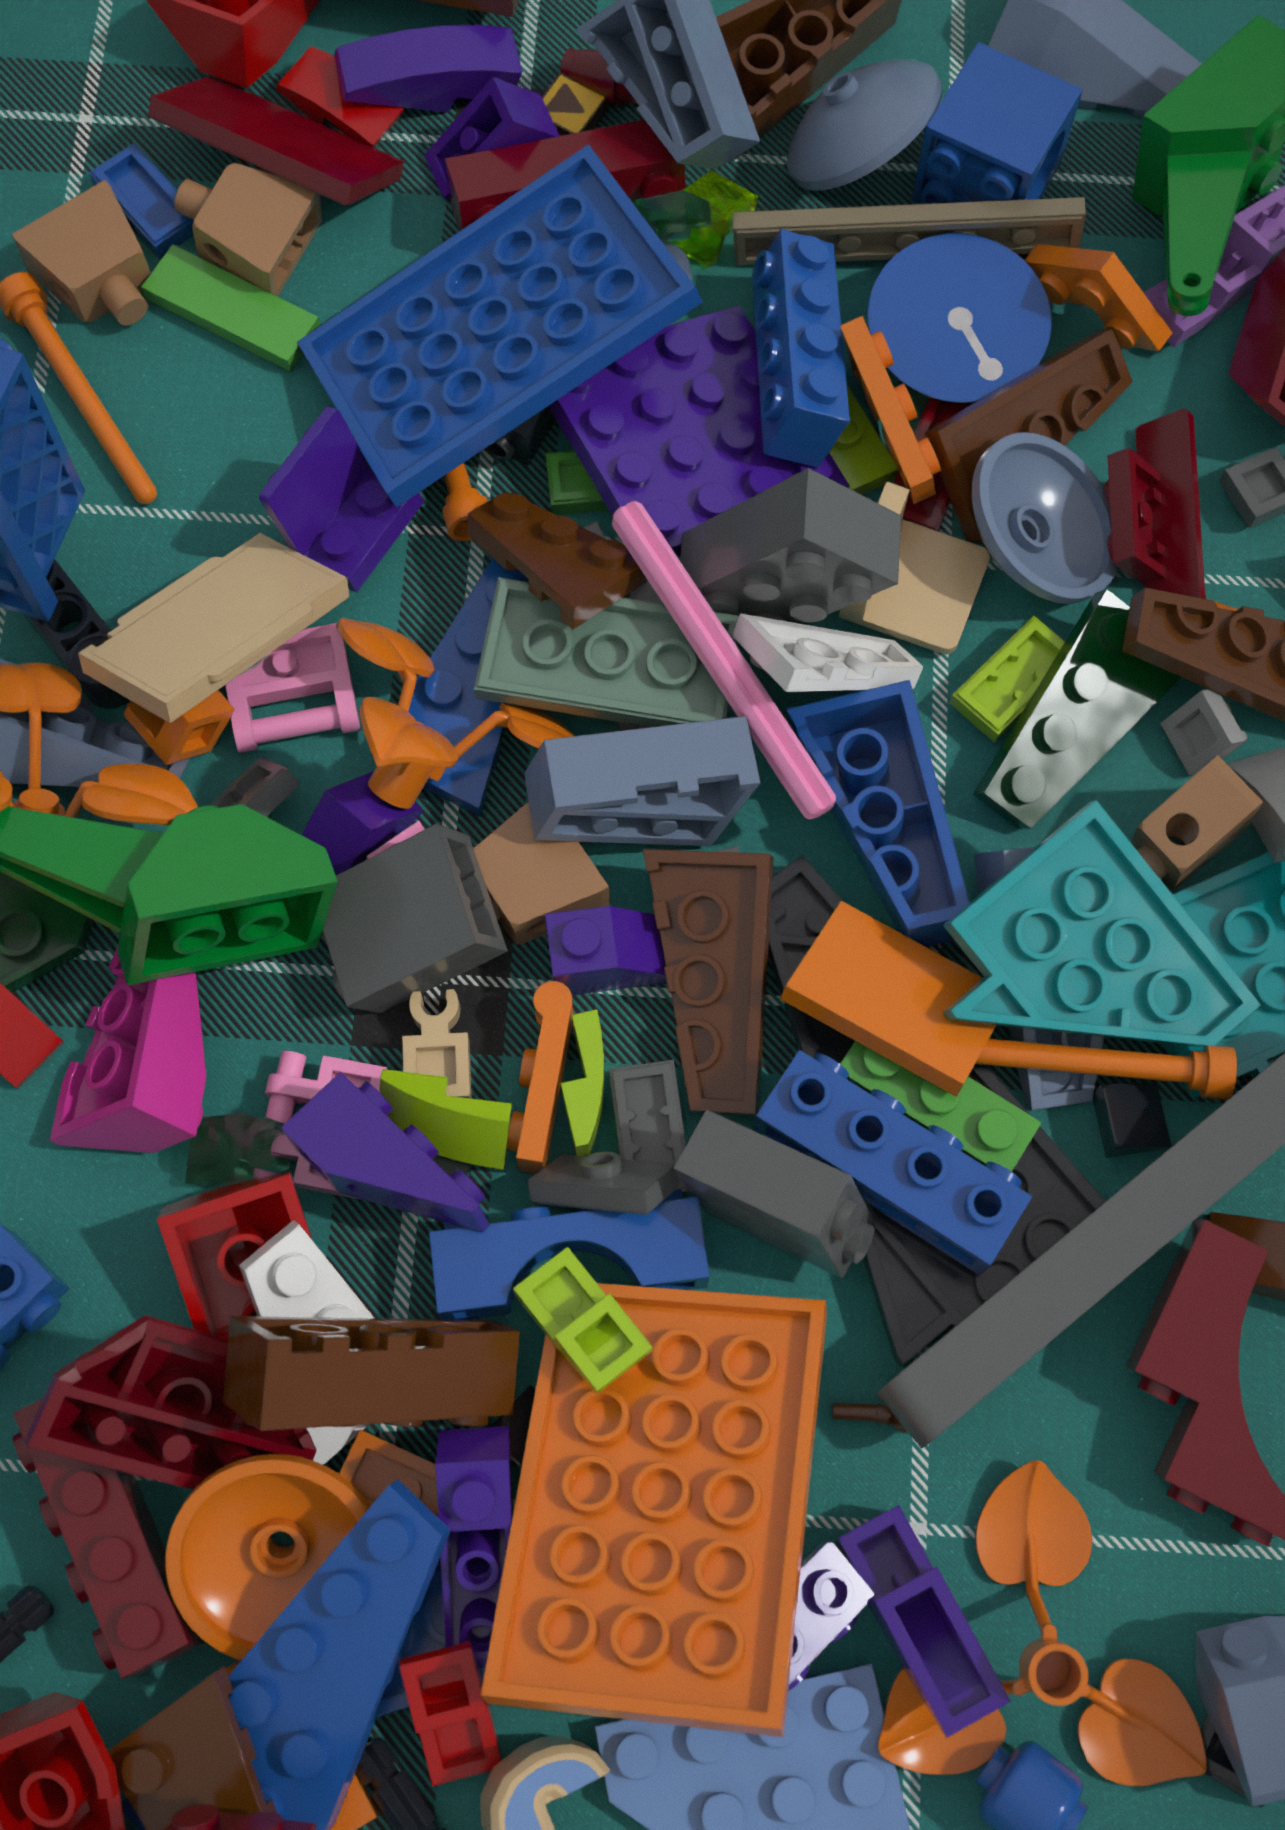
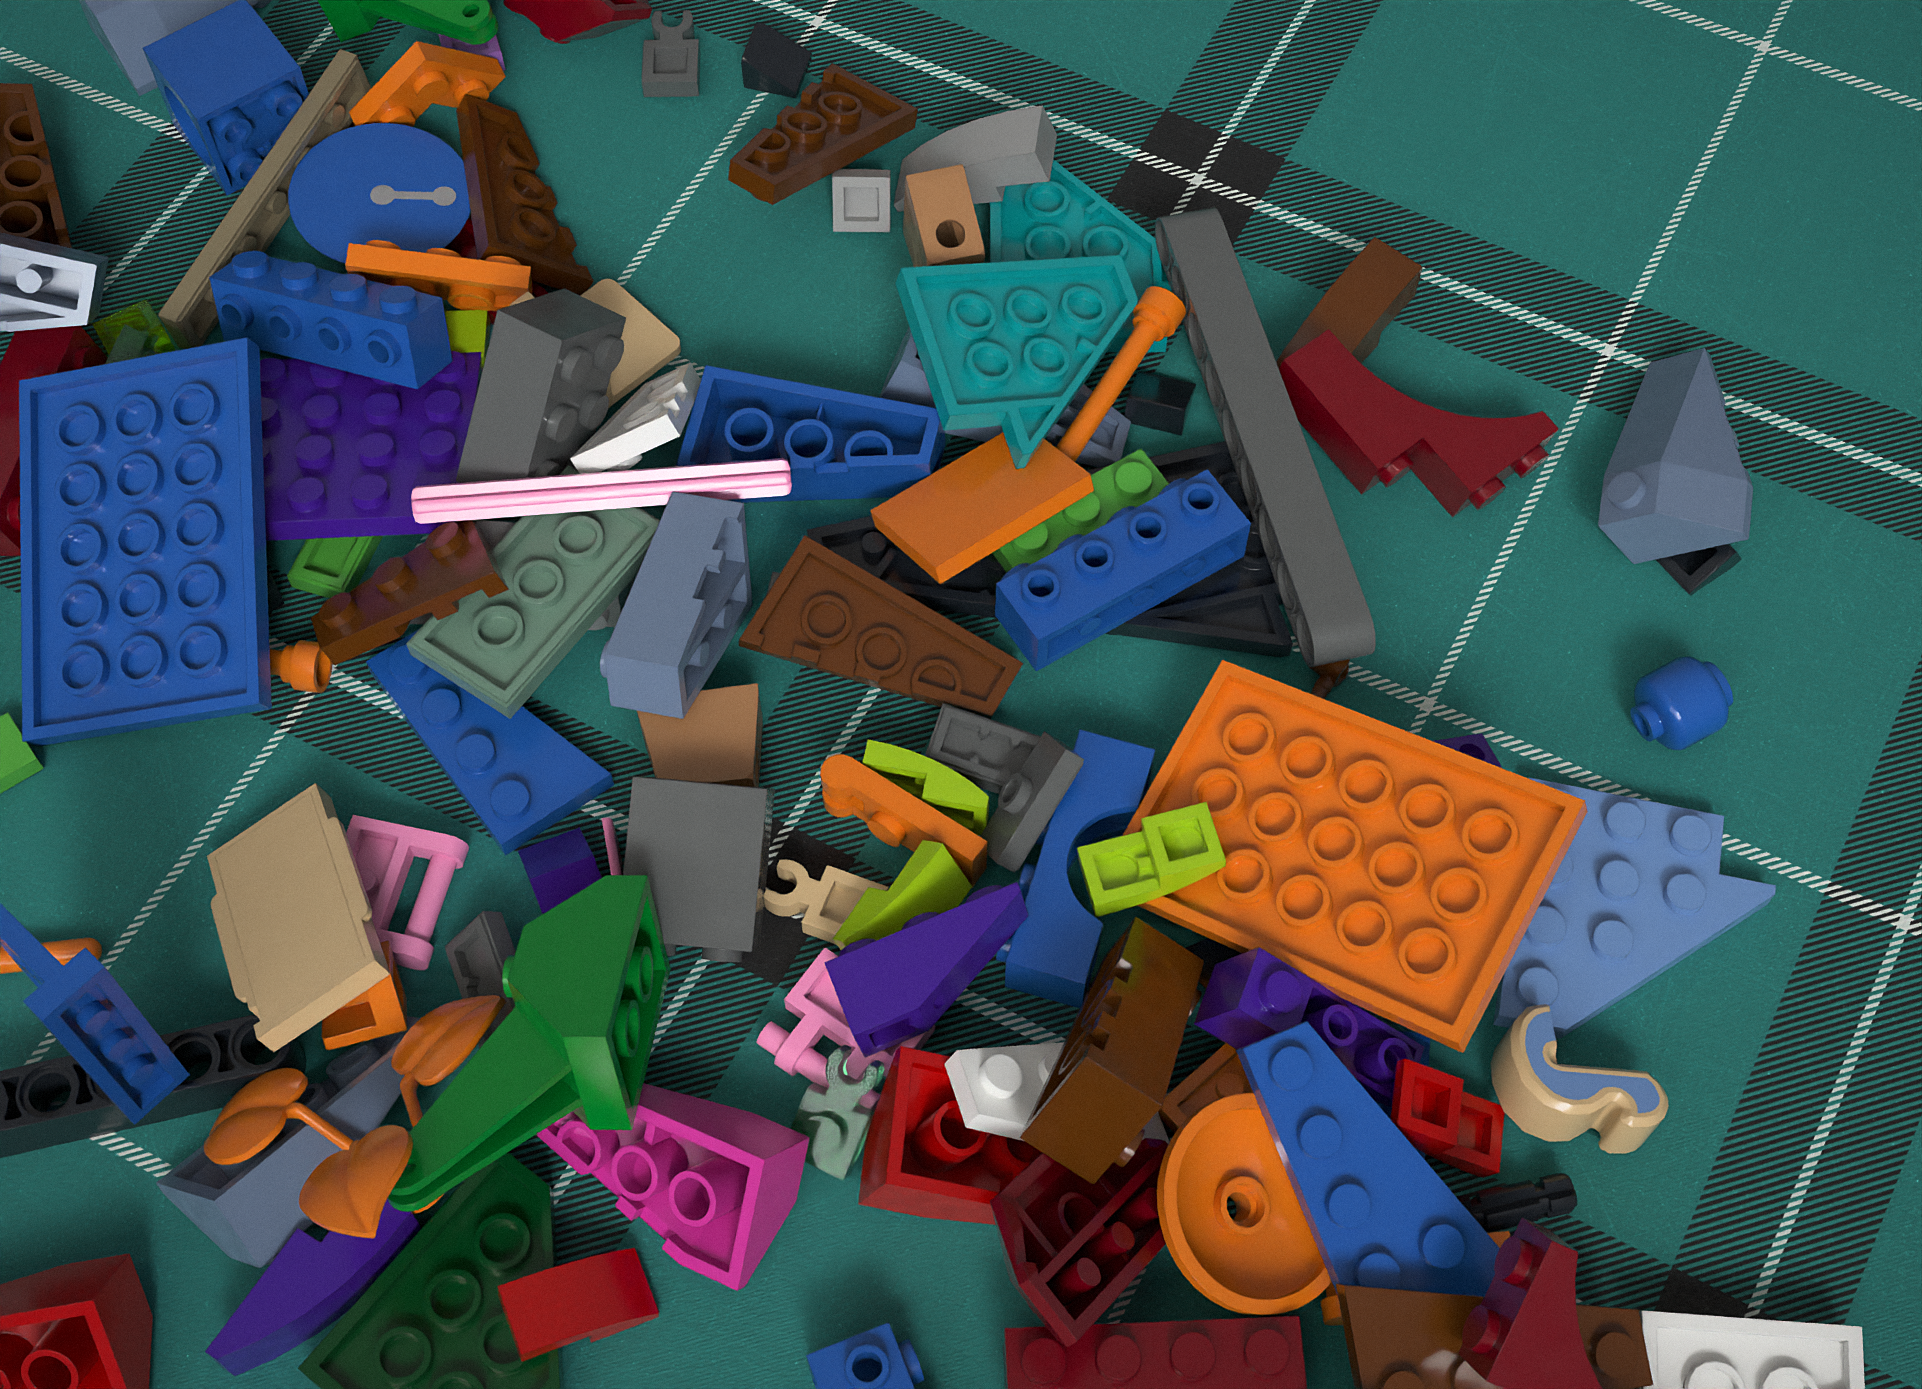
camera: 65 degrees left, 10 degrees down
(333, 503) = (234, 766): dark purple bracket -> none
(406, 748) = (537, 801): orange plant -> none
(605, 949) = (806, 725): dark purple slope -> none
(776, 1194) = (1114, 656): dark grey brick -> none
(862, 122) = (144, 180): sand blue dish -> none
(923, 1622) = (1520, 710): dark purple slope -> none
(1007, 681) = (735, 311): lime plate -> none
(1043, 517) = (609, 219): sand blue dish -> none
(1074, 715) = (793, 277): wing -> none
(1137, 1720) = (1583, 741): orange plant -> none
(1158, 507) = (650, 142): dark red bracket -> none

